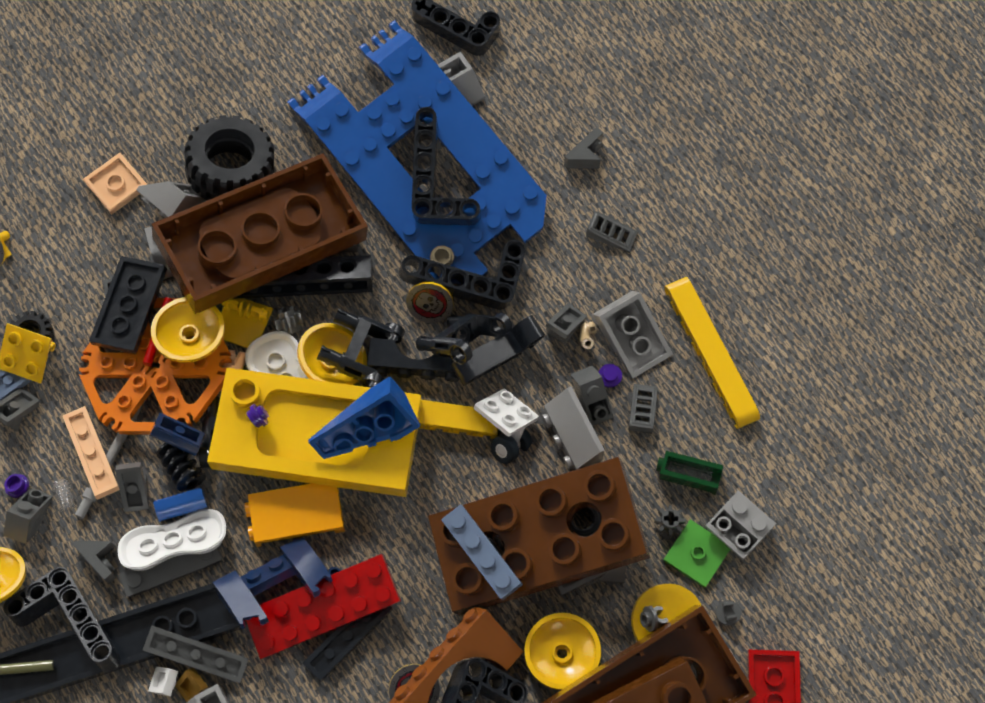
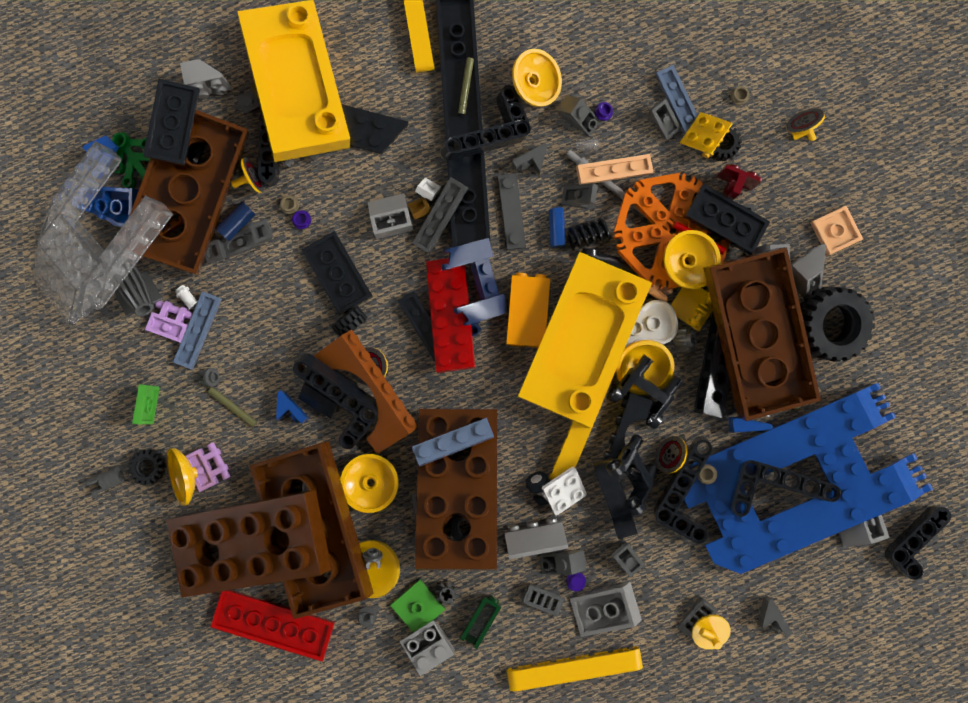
camera: 105 degrees right, 15 degrees up
(78, 304) = (738, 180): none -> dark red bracket
(153, 544) = (531, 201): white plate -> none
(177, 434) = (609, 234): dark blue brick -> none
(258, 415) = (604, 297): dark purple plate -> none
(372, 418) = (578, 386): blue wedge -> none
(375, 238) = (738, 425): none -> blue slope
(586, 330) = (613, 570): tan arm -> none
(622, 213) = (711, 632): none -> yellow shield

